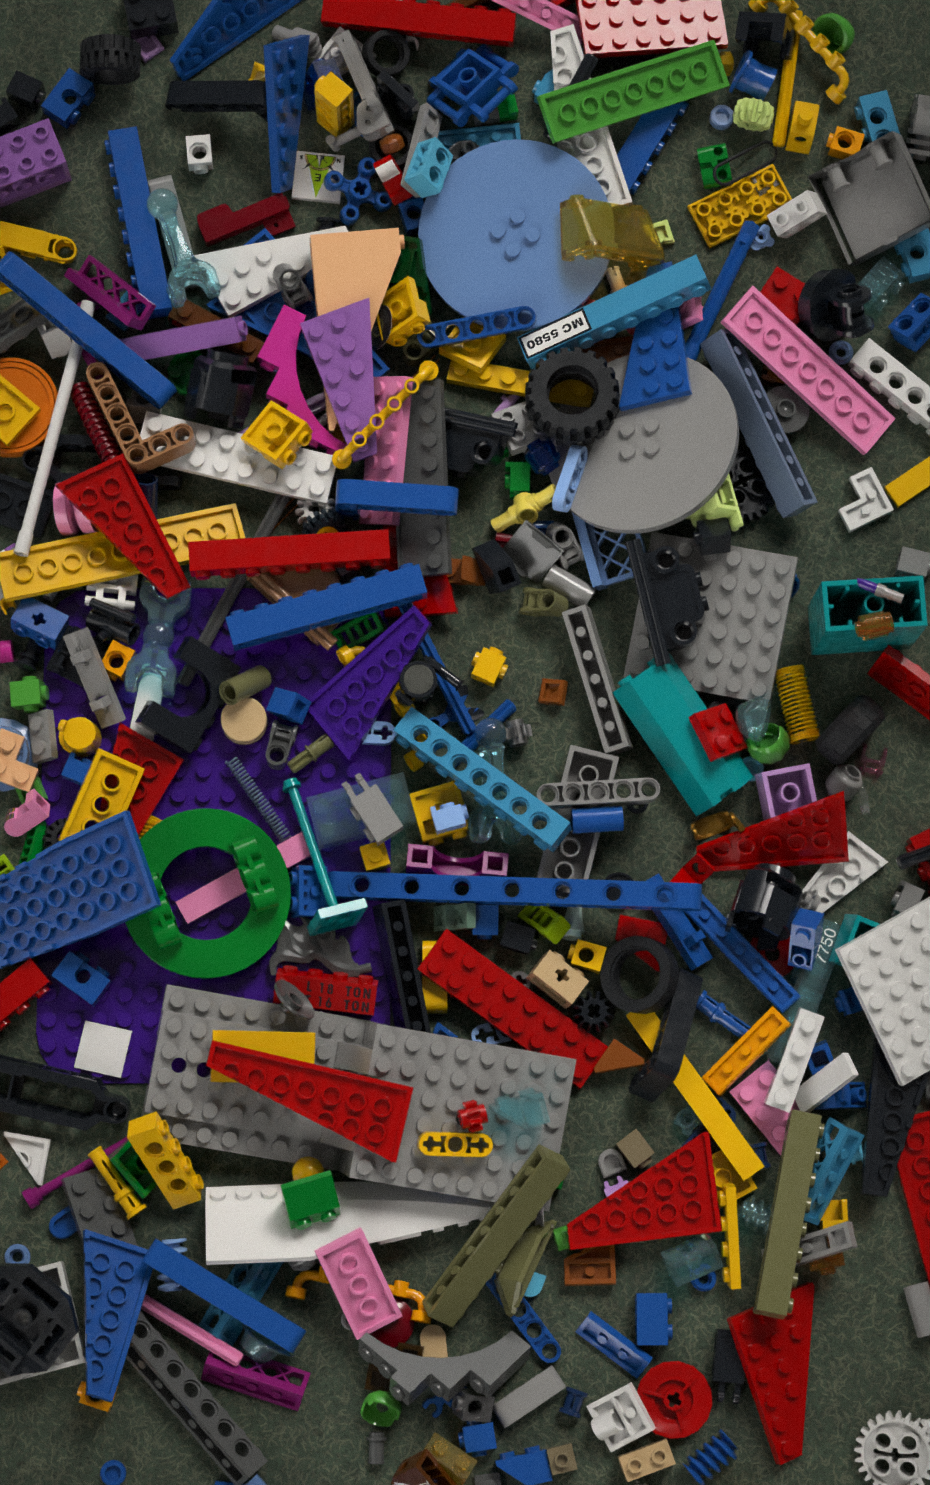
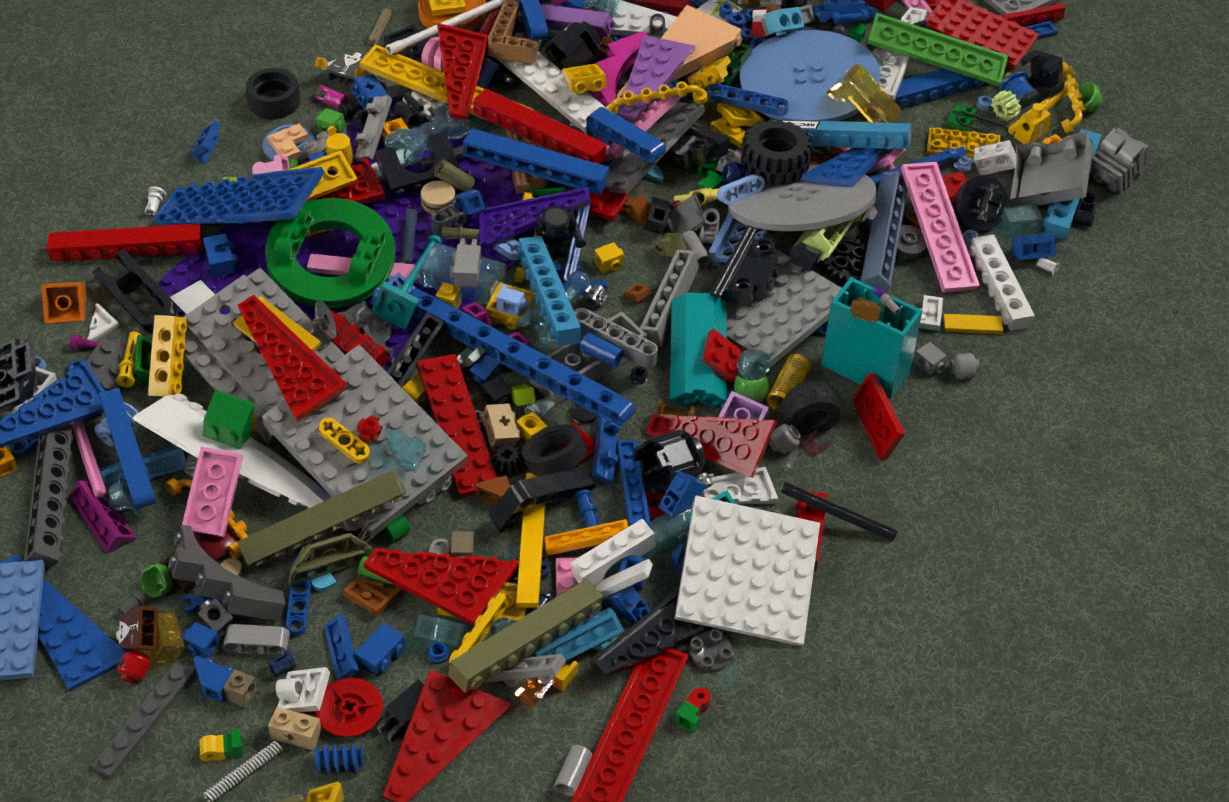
camera: 40 degrees right, 30 degrees down
(687, 873) = (636, 431): red bracket -> none

